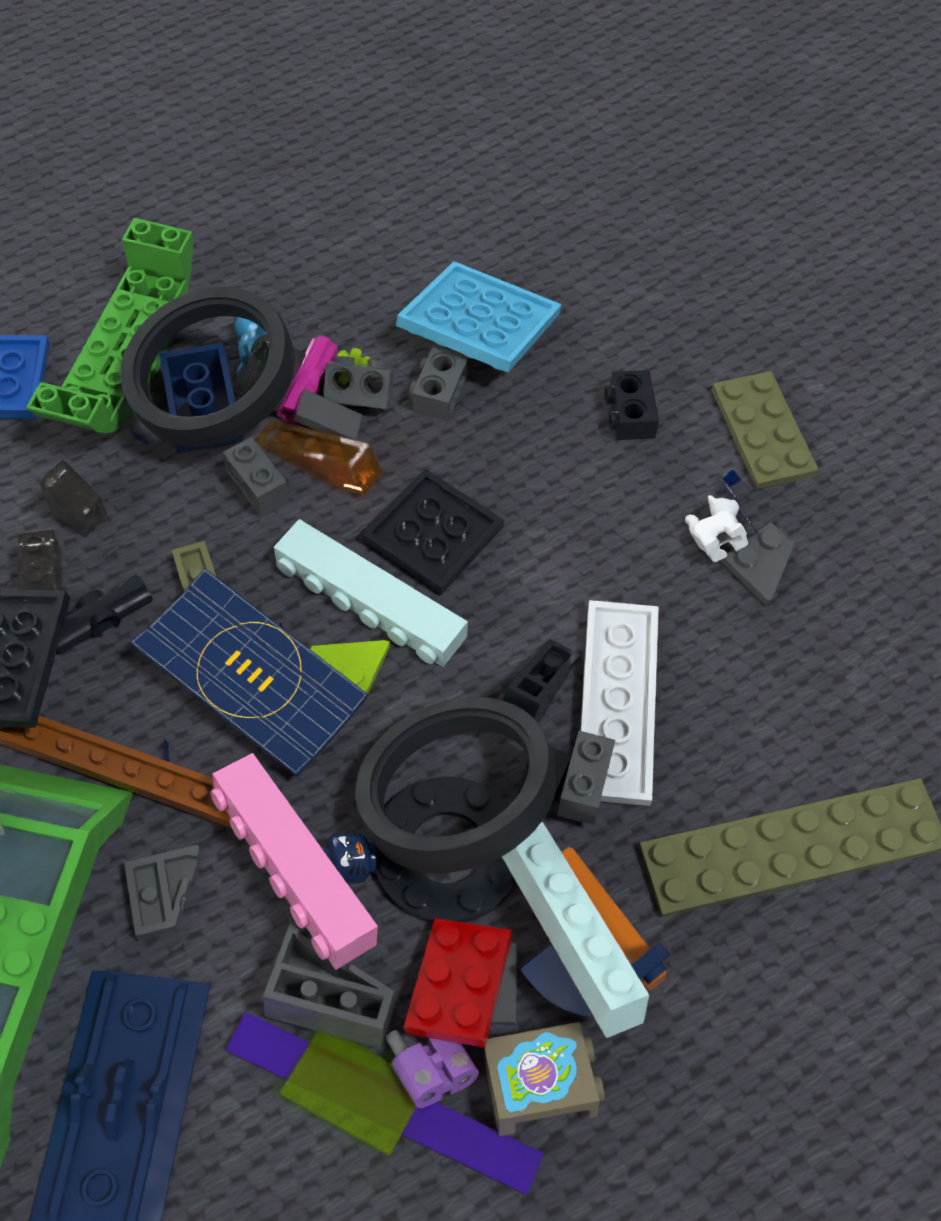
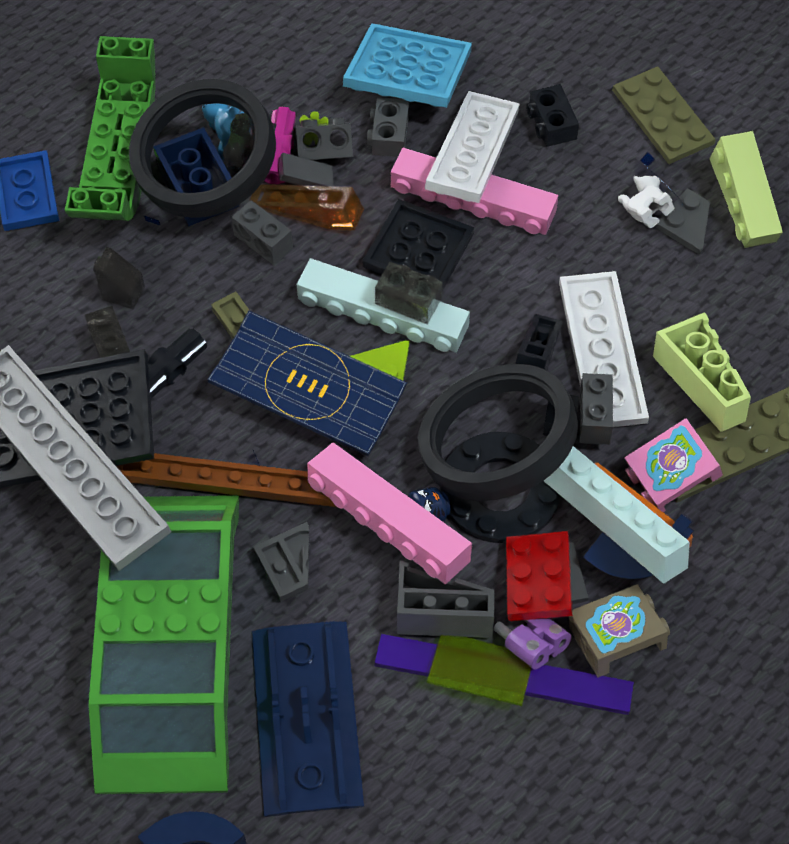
camera: 10 degrees left, 0 degrees up
(393, 589) = (407, 297): none -> clear smoke brick
(516, 477) = (502, 199): none -> bright pink brick
(524, 425) = (472, 147): none -> white plate
(663, 871) = (671, 464): none -> panel
(732, 754) = (703, 370): none -> yellowish green wedge
(841, 539) = (746, 189): none -> yellowish green wedge

